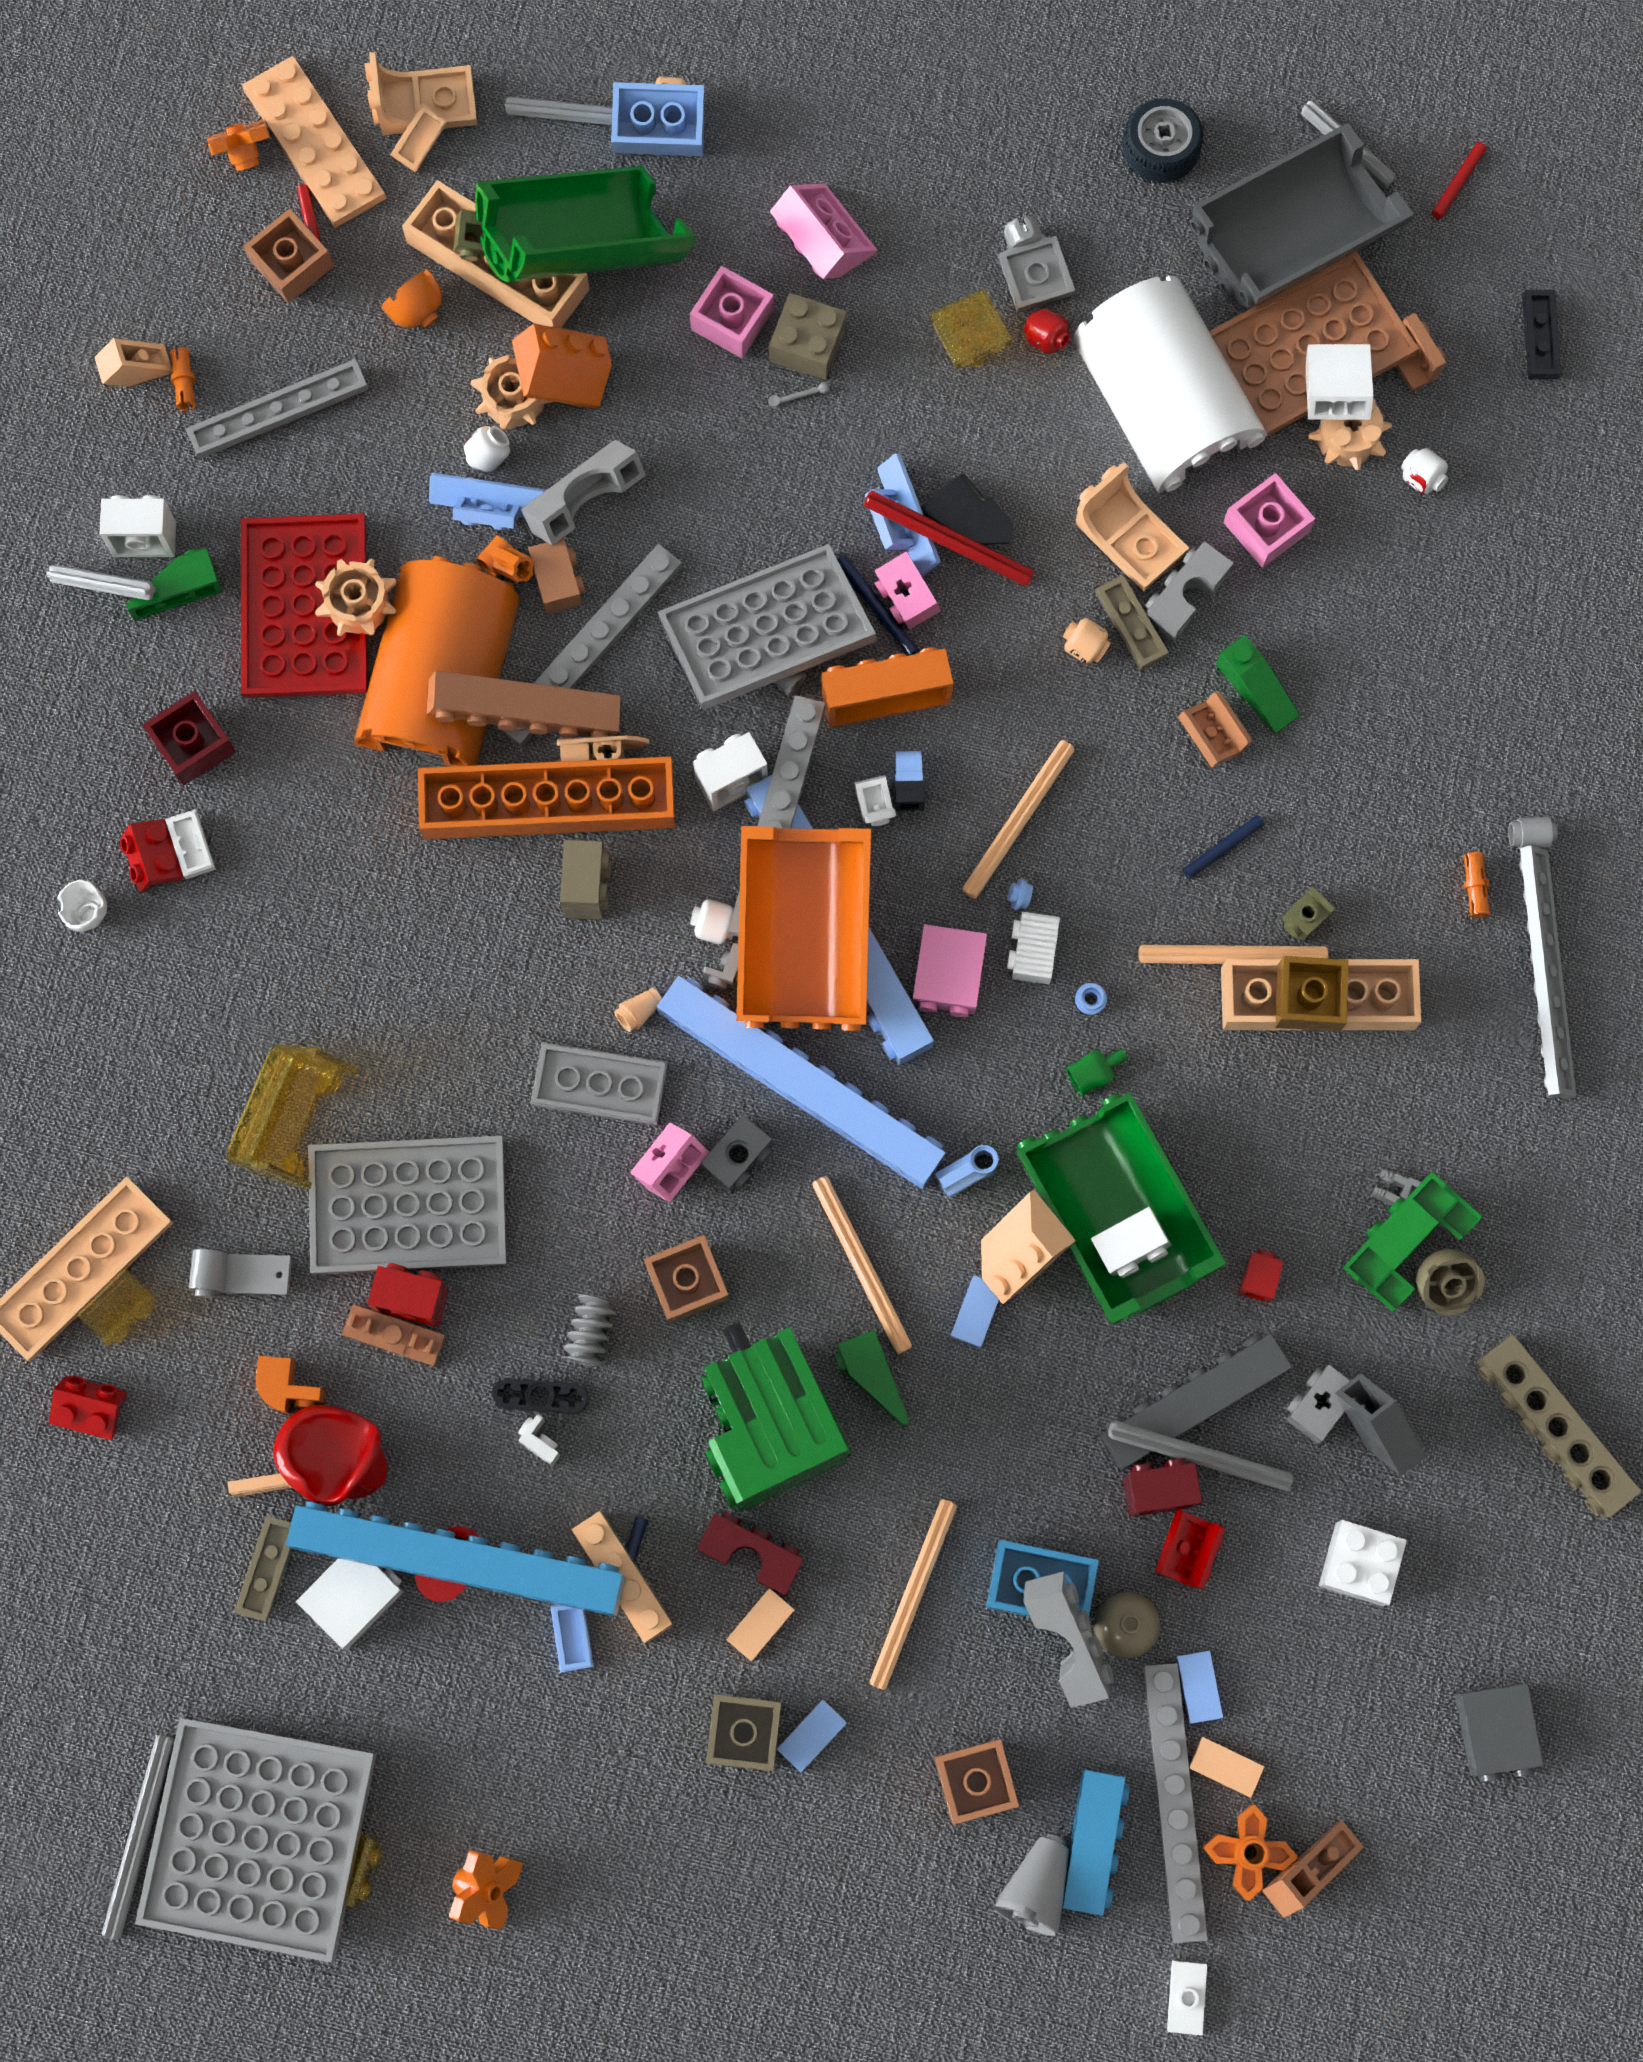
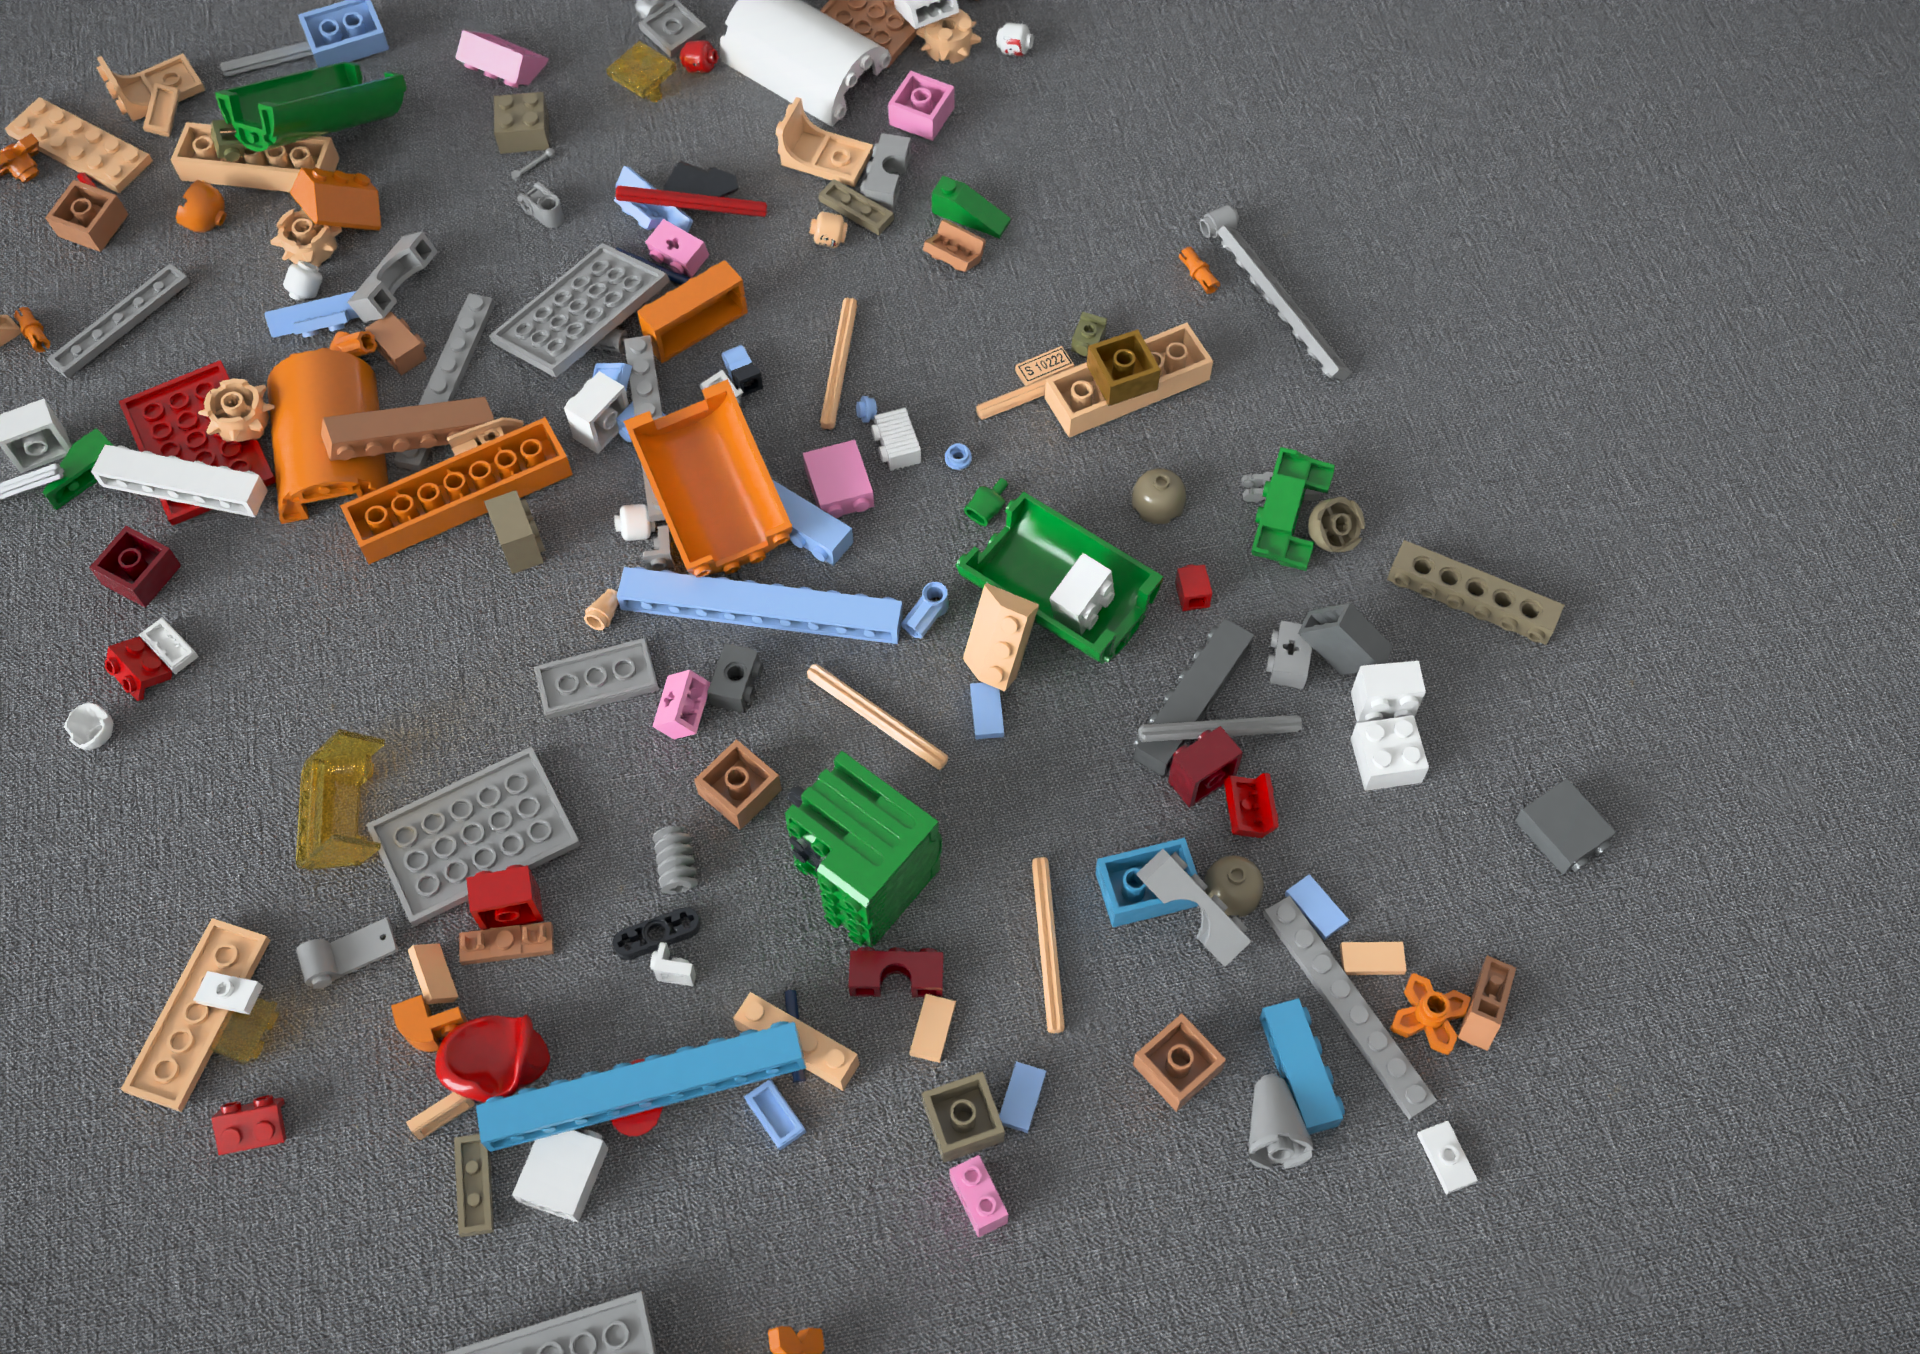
camera: 25 degrees left, 15 degrees down
(113, 1268) = (228, 992): none -> white plate
(268, 656) = (180, 480): none -> white brick
(311, 1336) = (433, 973): none -> light nougat tile
(722, 1814) = (978, 1196): none -> bright pink brick
(731, 312) = (455, 126): bright pink brick -> none
(764, 731) = (617, 371): none -> light blue tile
(783, 457) = (543, 206): none -> light grey piece
(869, 1370) = (929, 790): green slope -> none
(1223, 846) = (1002, 320): dark blue bar -> none
(1240, 929) = (1044, 366): none -> light nougat tile
(1282, 1149) = (1159, 496): none -> dark tan cylinder
(1395, 1500) = (1387, 691): none -> white brick

